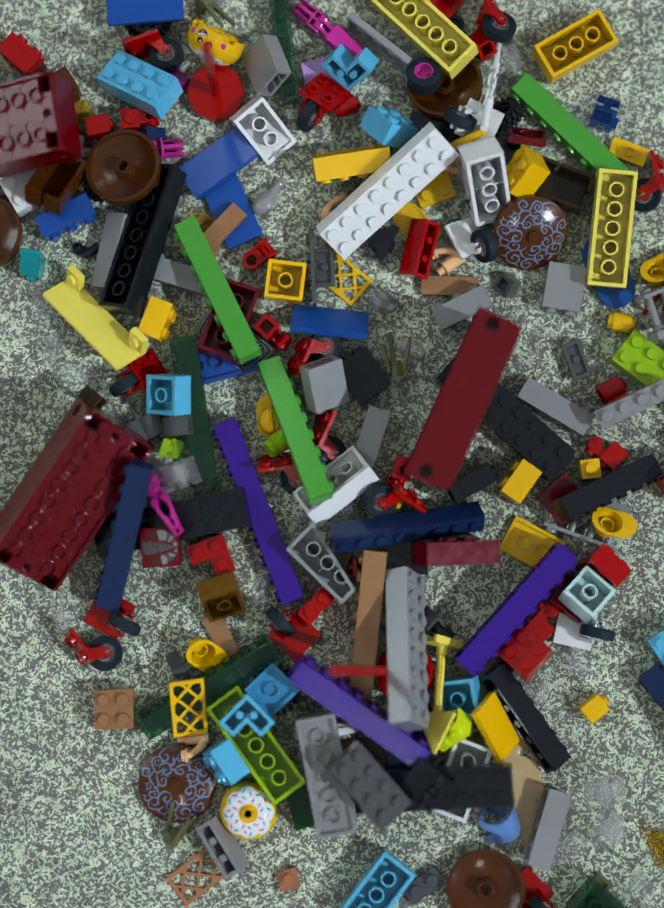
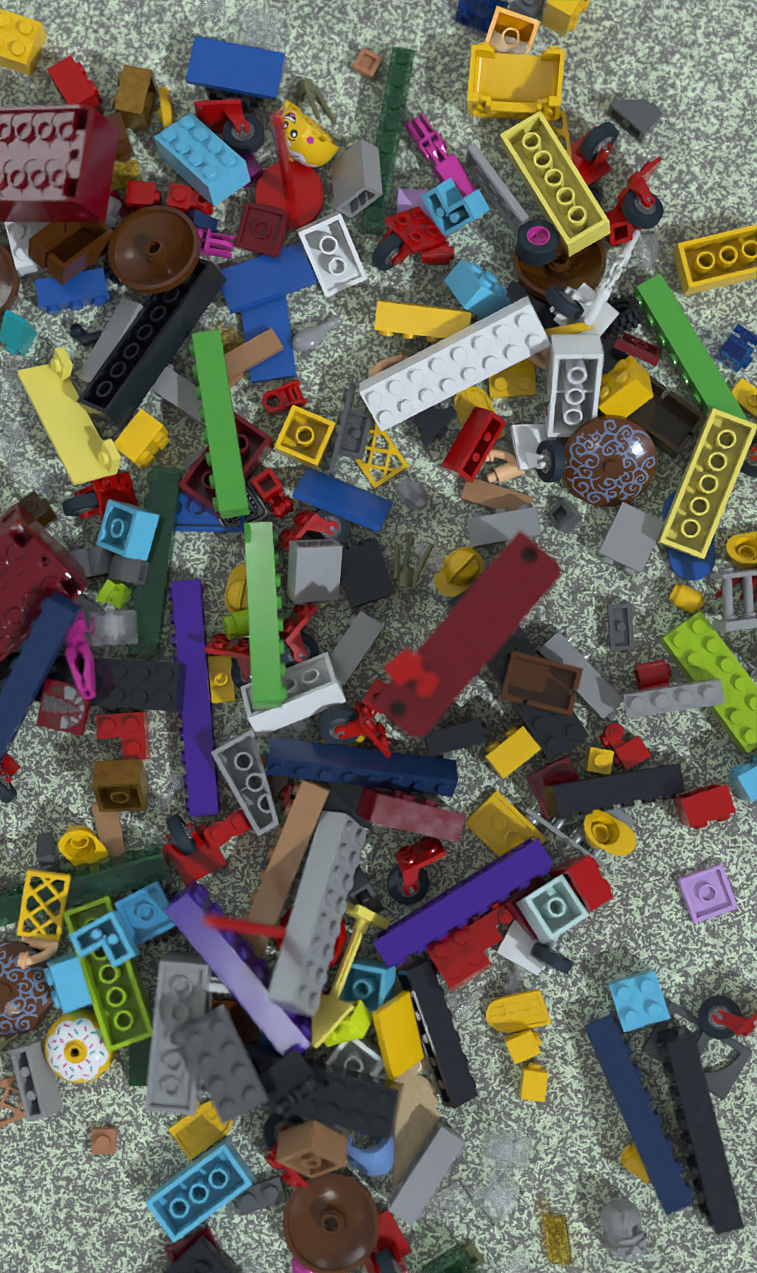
camera: 25 degrees right, 0 degrees up
(71, 49) = (136, 97): none -> pearl gold brick
(97, 52) = (165, 112): none -> yellow plate
(202, 126) = (262, 230): none -> dark red tile
(274, 491) = (221, 682): none -> yellow plate
(355, 126) = (440, 281): none -> light grey plant
(362, 846) = (199, 1131): none -> yellow window
(425, 436) = (407, 667): none -> red brick
(429, 832) = (271, 1130): none -> plate
(438, 351) = (460, 572): none -> yellow piece
(455, 833) = (312, 1149): none -> medium nougat brick
(468, 606) = (409, 880): none -> plate
(527, 421) = (540, 683): none -> reddish brown piece
(583, 683) = (518, 1012): none -> yellow window
(610, 734) = (533, 1082): none -> yellow brick

